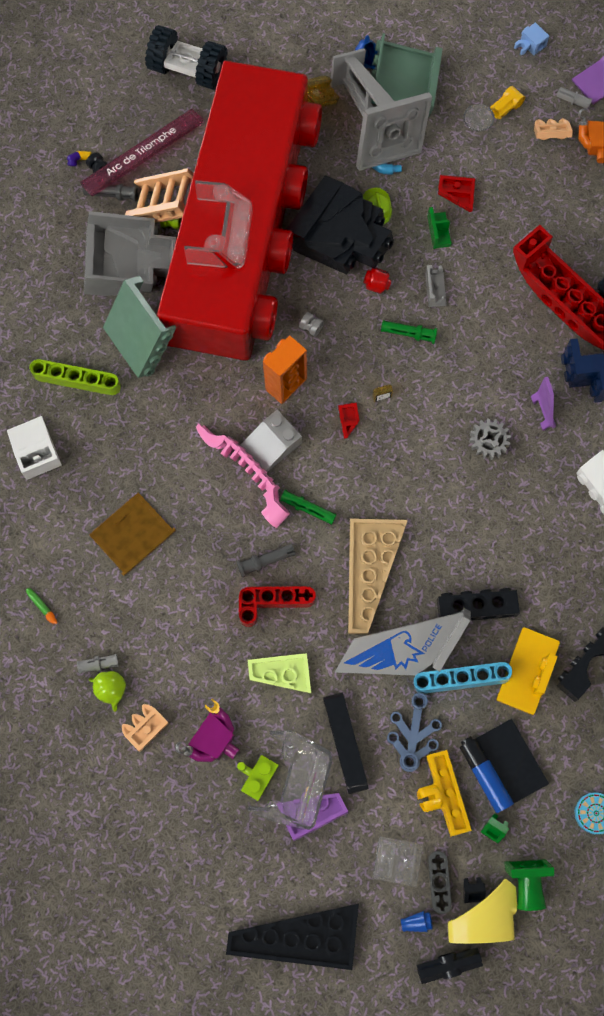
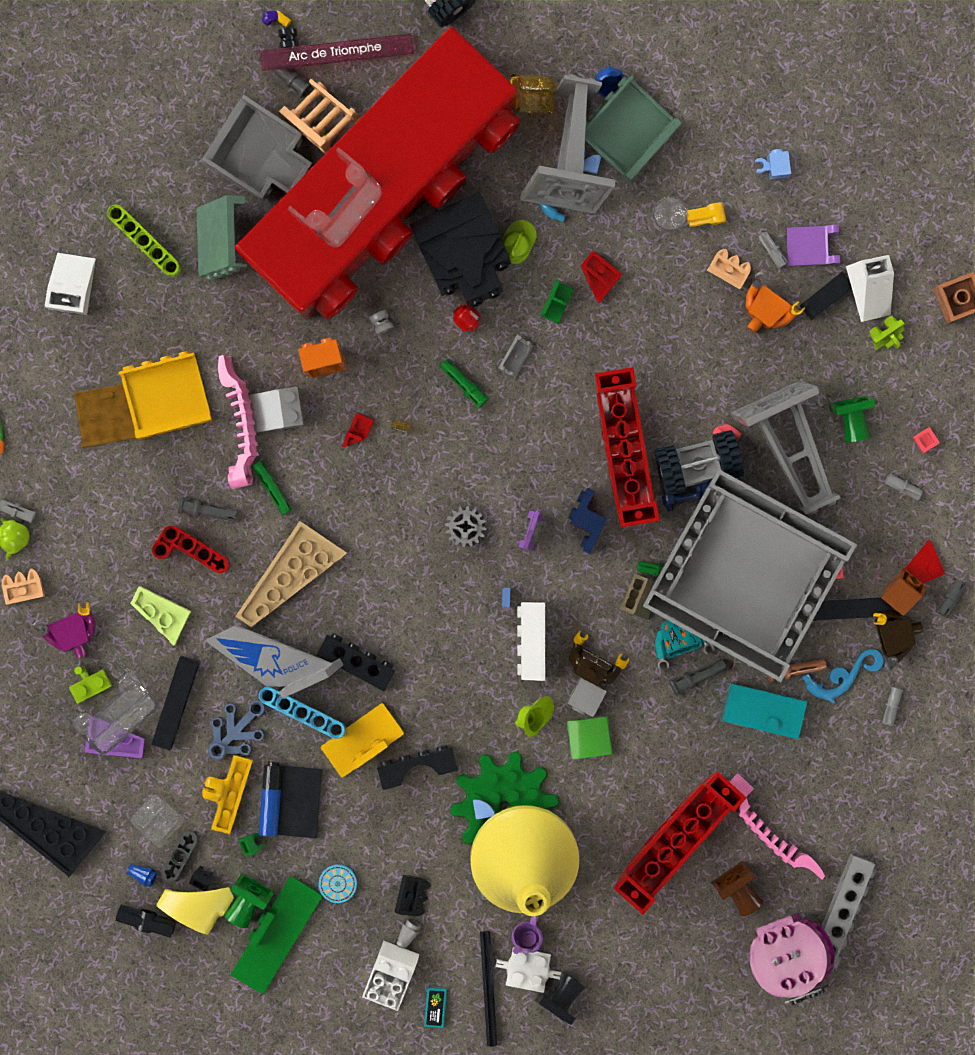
camera: 30 degrees right, 15 degrees up
(169, 487) = (165, 395): none -> yellow panel
(563, 474) = (506, 597): none -> medium blue tile
(575, 899) = (276, 934): none -> green bracket

